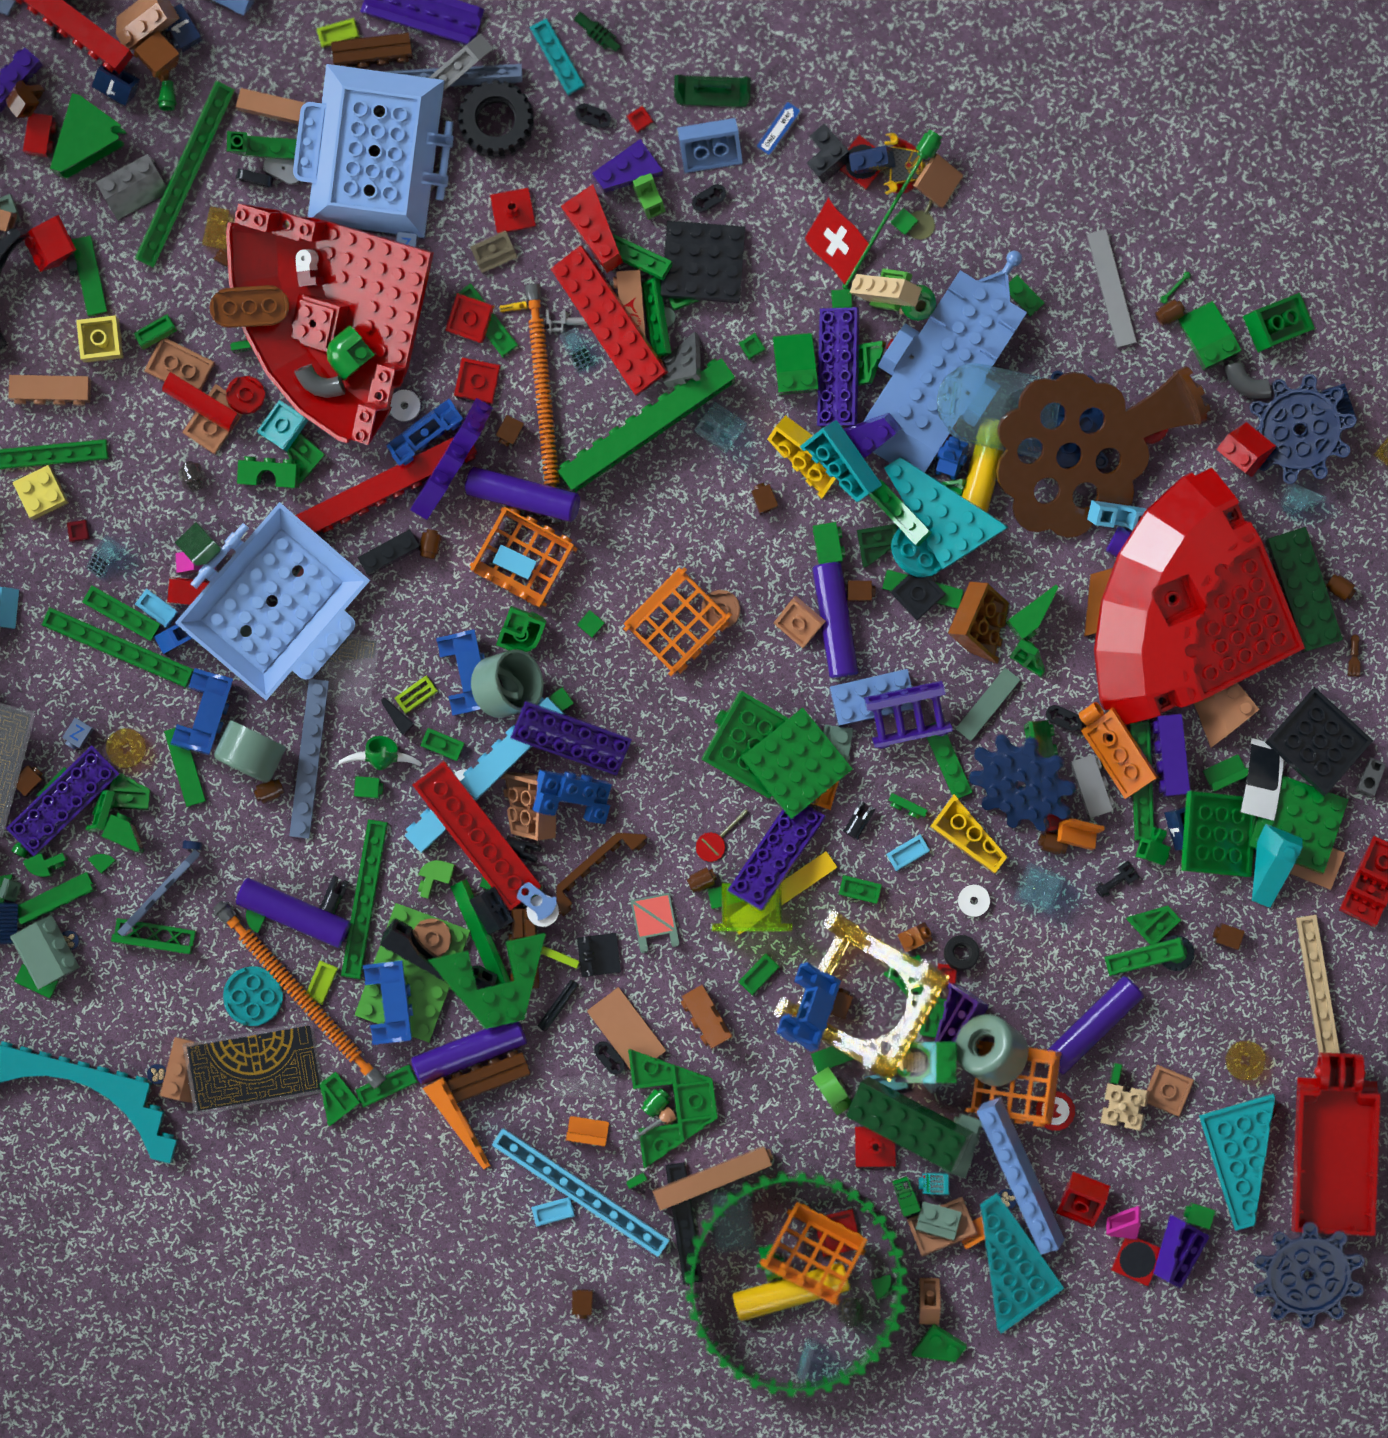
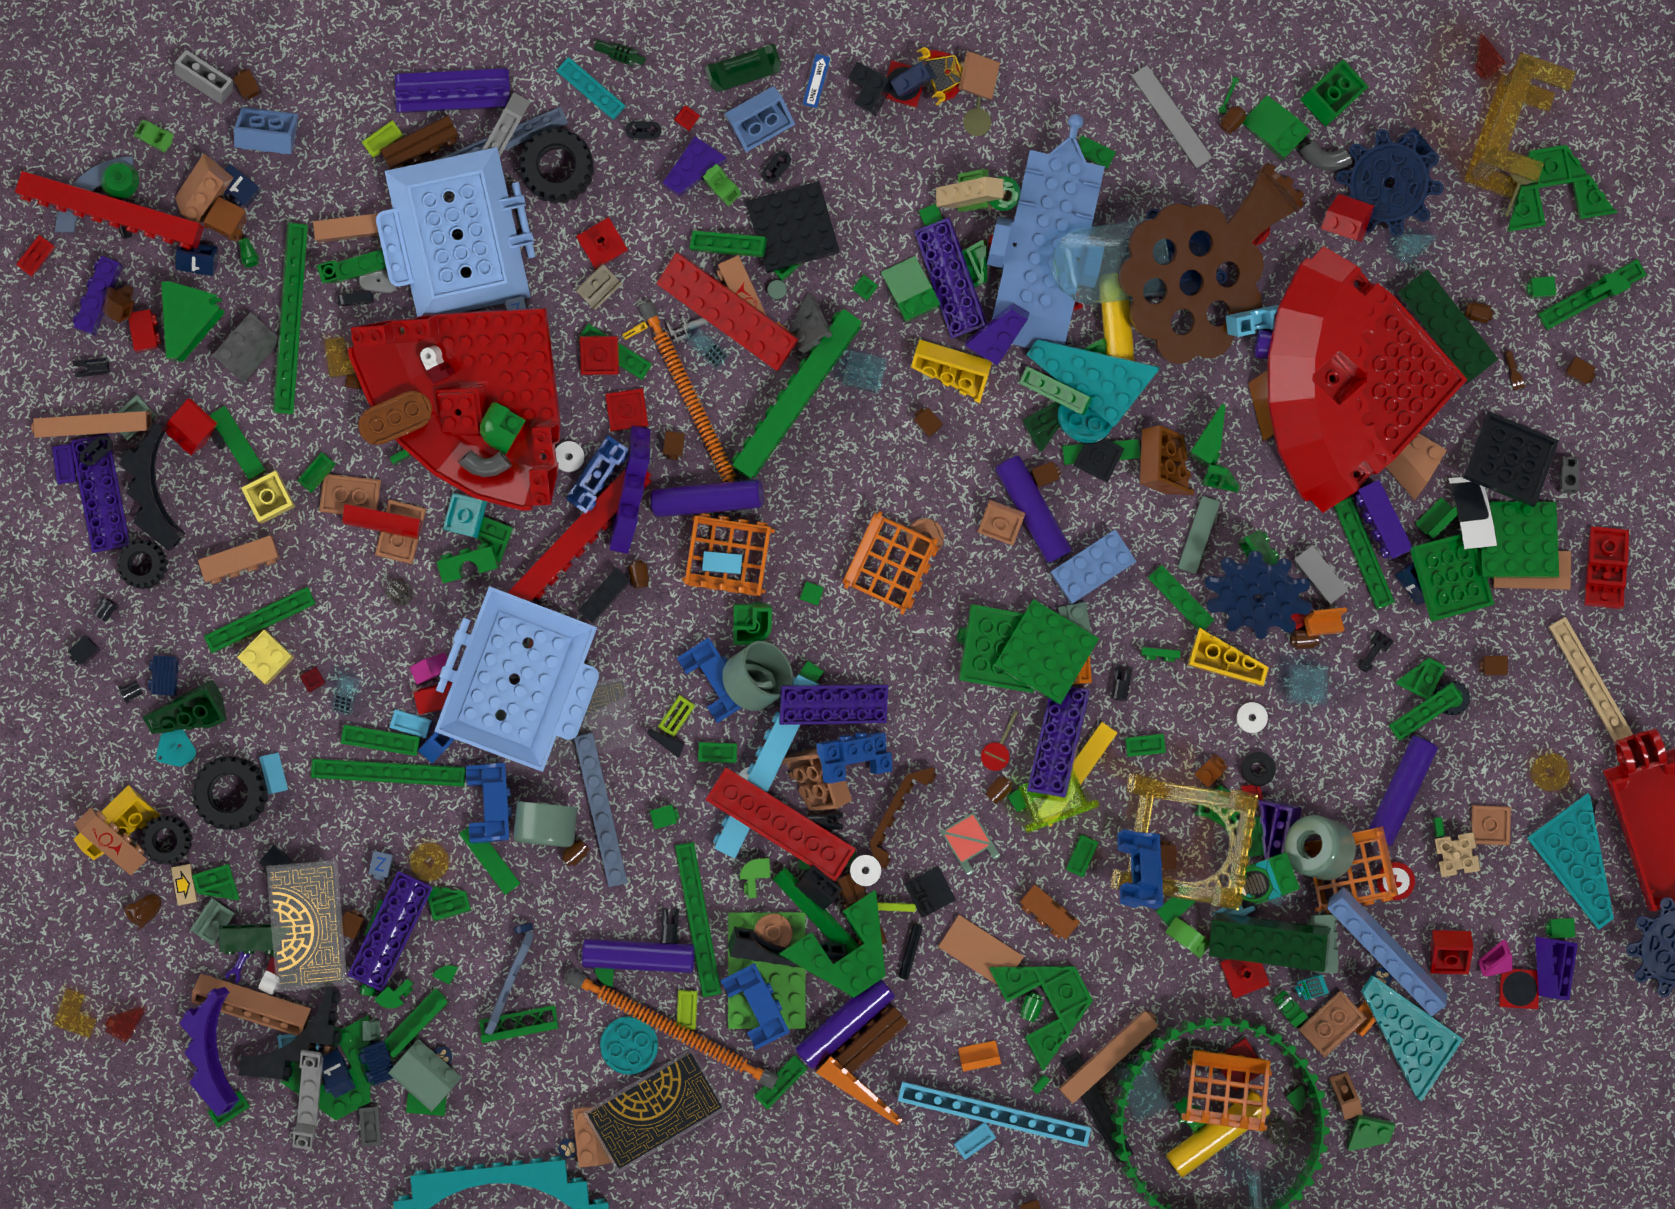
camera: 25 degrees left, 0 degrees up
(101, 811) = (429, 928): green wing -> none
(123, 832) = (456, 940): green slope -> none
(198, 545) = (429, 653): dark green piece -> none
(245, 395) = (420, 500): red tile -> none
(337, 1098) = (740, 1110): green wing -> none
(380, 753) = (664, 781): green helmet -> none
(548, 903) = (868, 863): medium blue piece -> none
(591, 224) = (678, 229): red wedge -> none
(605, 1061) = (972, 986): black beam -> none
(656, 317) = (769, 292): green tile -> none
(666, 1117) = (1046, 1016): hinge -> none
(827, 543) = (1000, 441): green brick -> none
(840, 241) = (910, 163): red flag -> none
(842, 460) = (988, 362): teal wedge -> none
(895, 700) = (1115, 562): dark purple fence -> none
(904, 221) = (961, 124): green tile -> none
(908, 852) = (1176, 695): medium azure tile -> none
(938, 1221) = (1328, 1020): sand green plate -> none
(952, 457) = (1085, 322): blue hinge -> none
(1061, 722) = (1272, 517): black beam -> none
(1119, 757) = (1337, 538): orange hinge -> none
(1153, 849) = (1397, 611): green brick -> none
(1274, 860) = (1511, 583): teal wedge -> none

